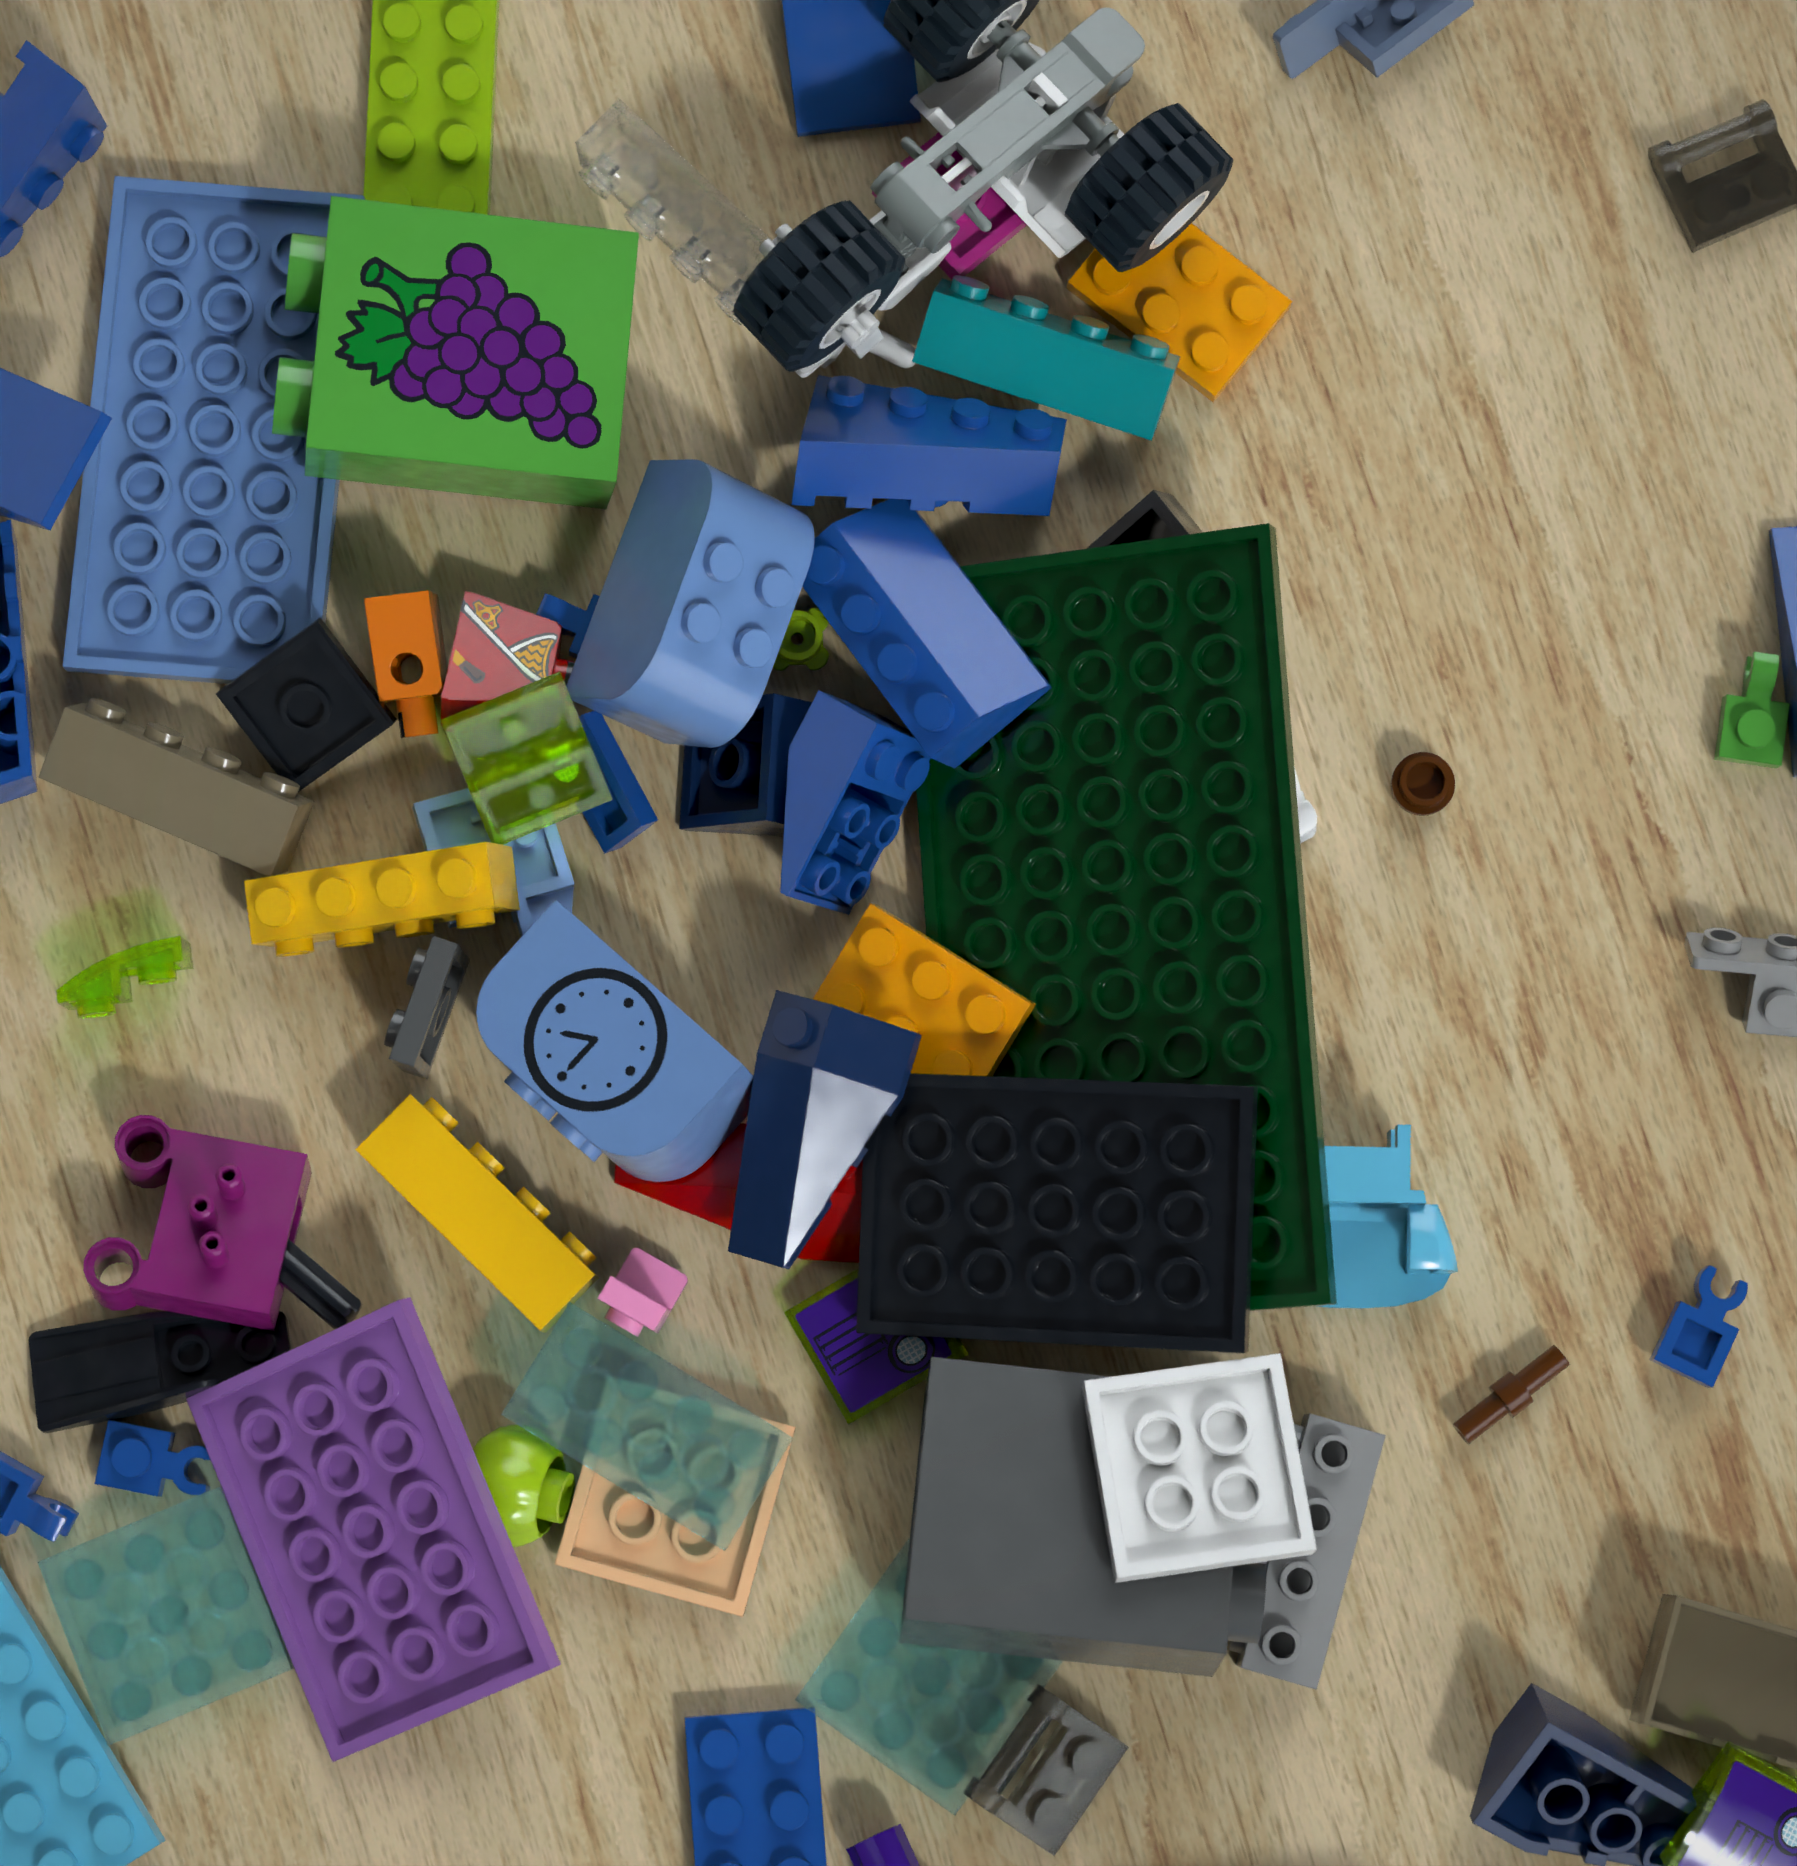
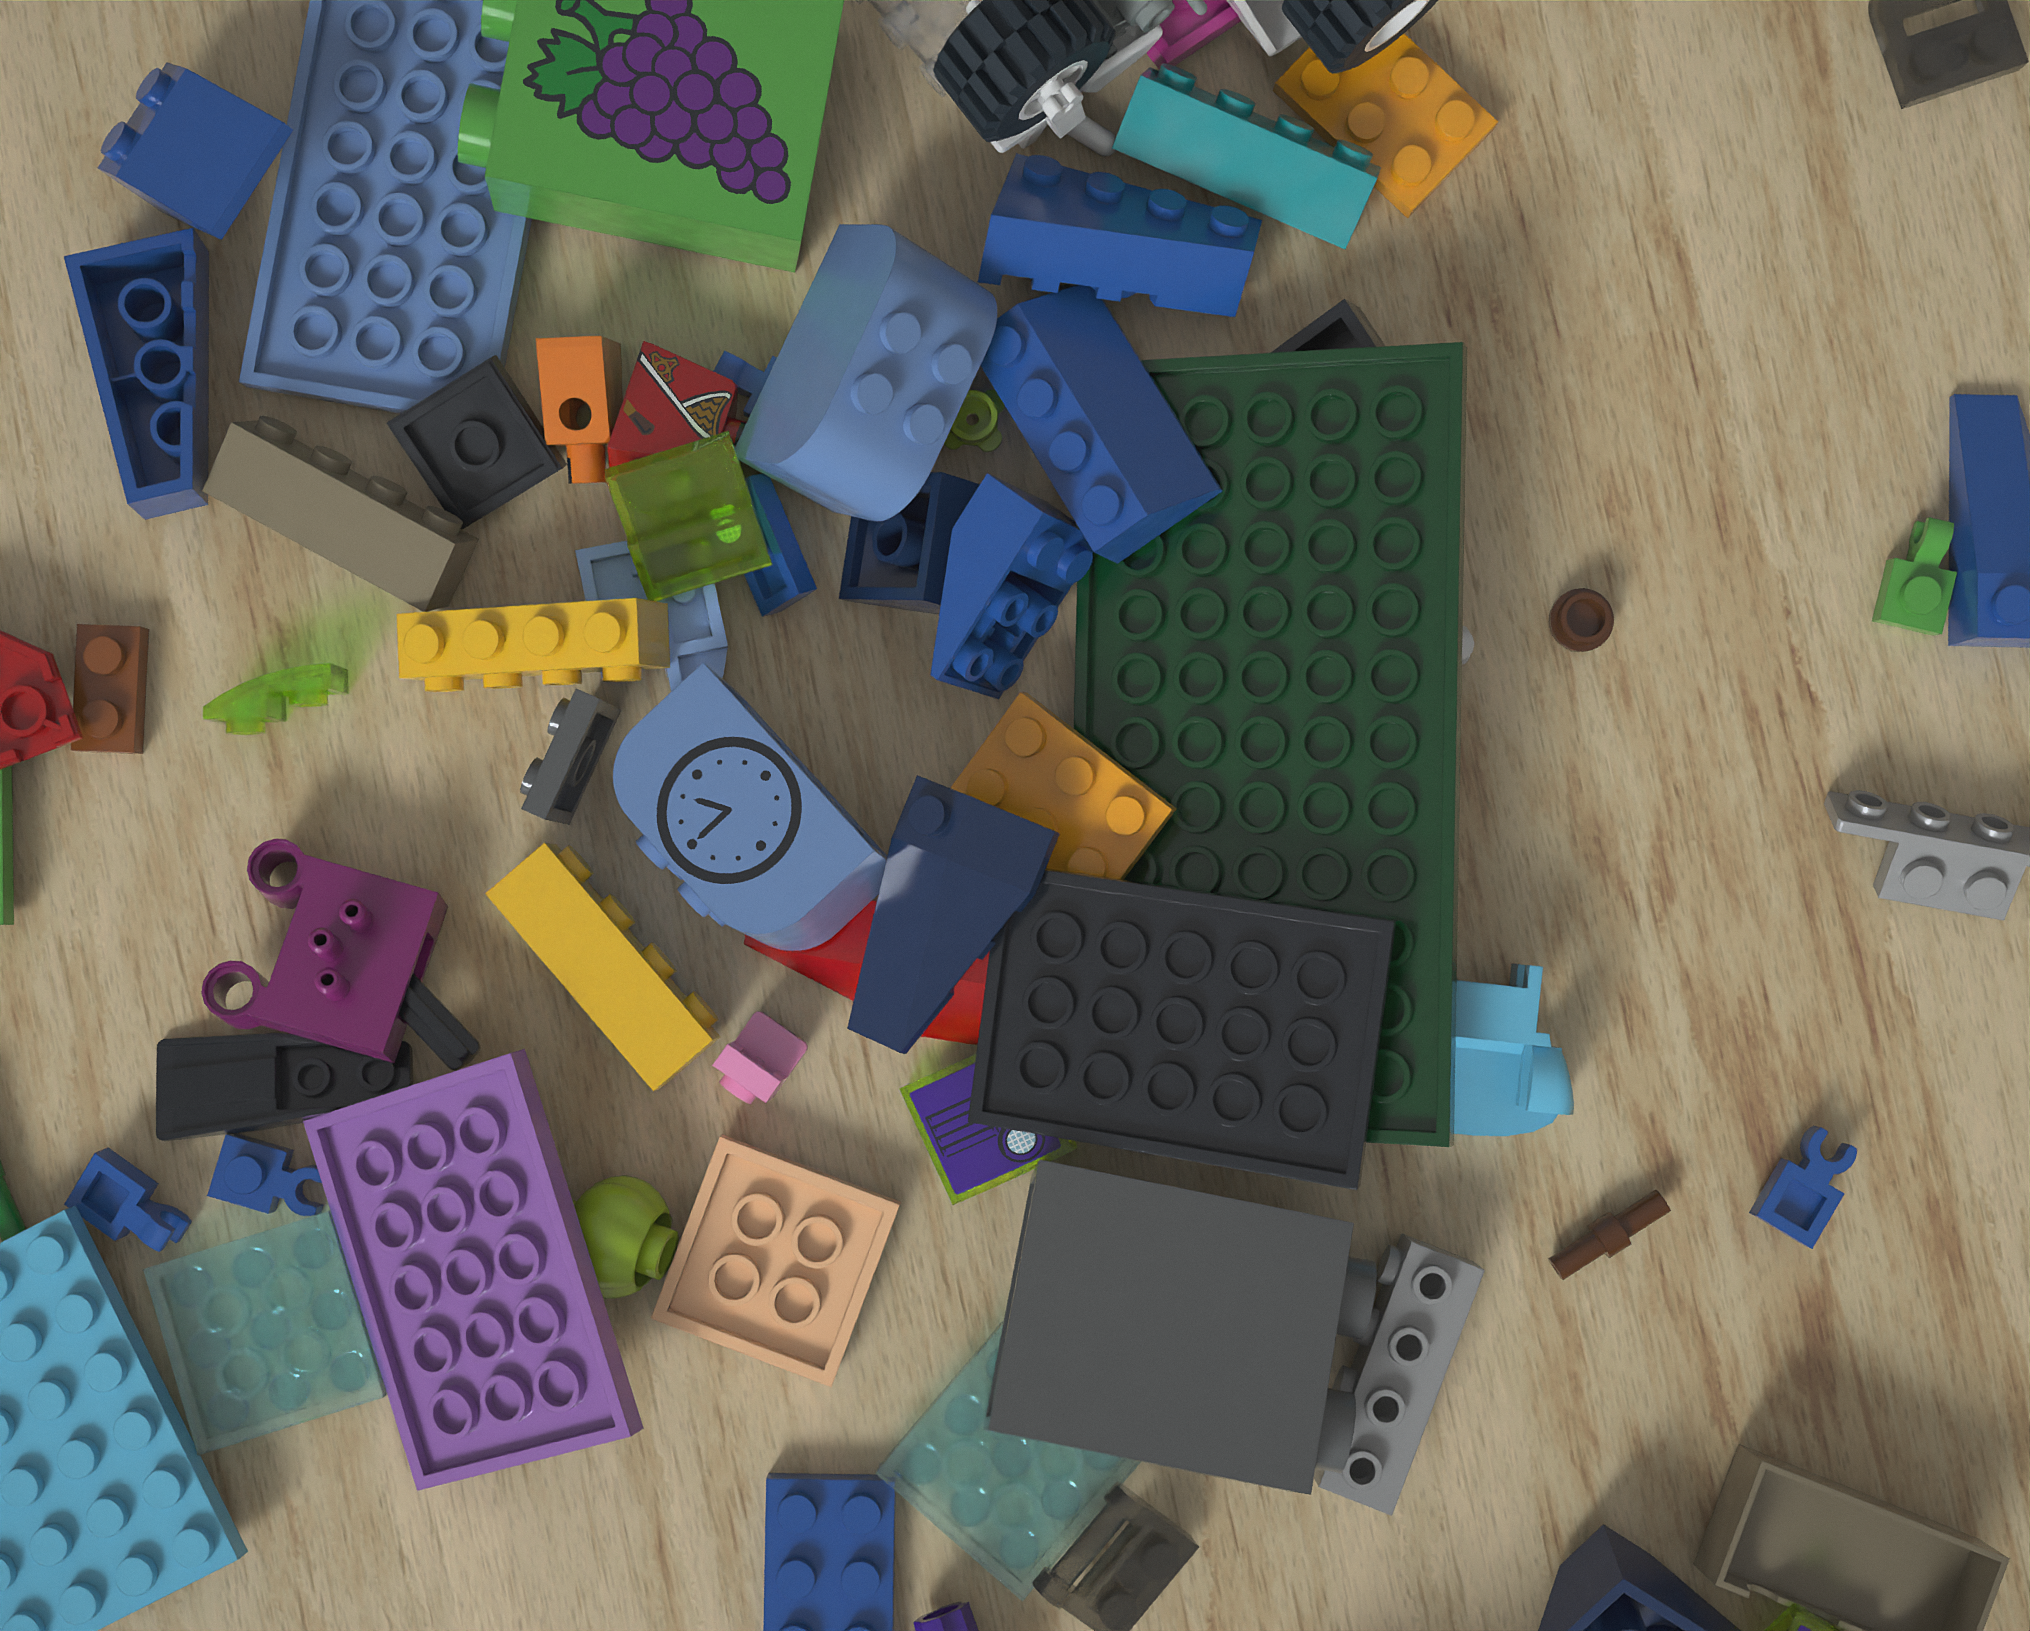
camera: 10 degrees right, 5 degrees up
(647, 1426) = (752, 1194): clear light blue plate -> none
(1198, 1468) = (1299, 1302): white plate -> none

